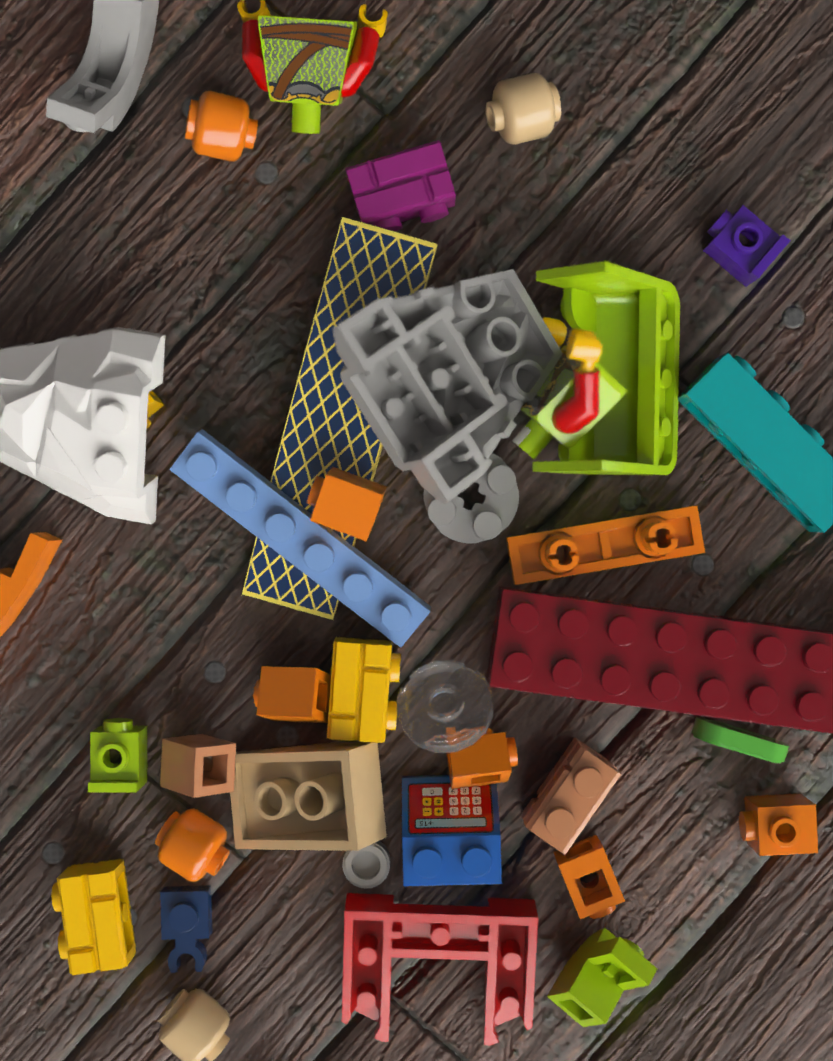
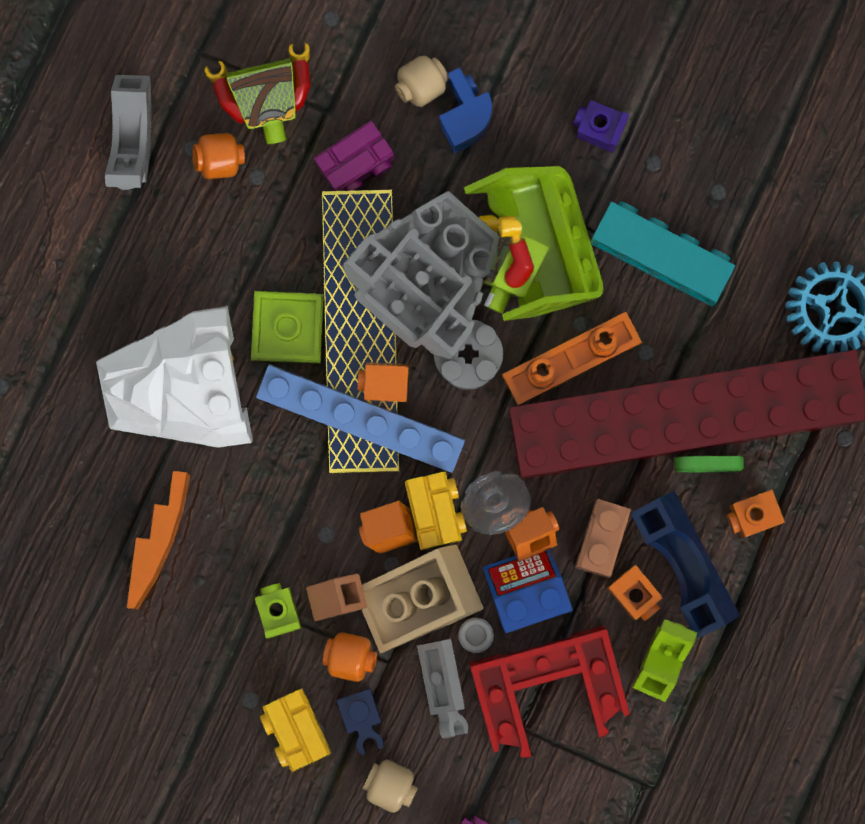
camera: 10 degrees left, 5 degrees down
(244, 386) = (287, 327): none -> lime tile
(302, 918) = (443, 686): none -> light grey plate
(569, 183) = (471, 119): none -> blue brick
(678, 909) = (703, 594): none -> dark blue arch

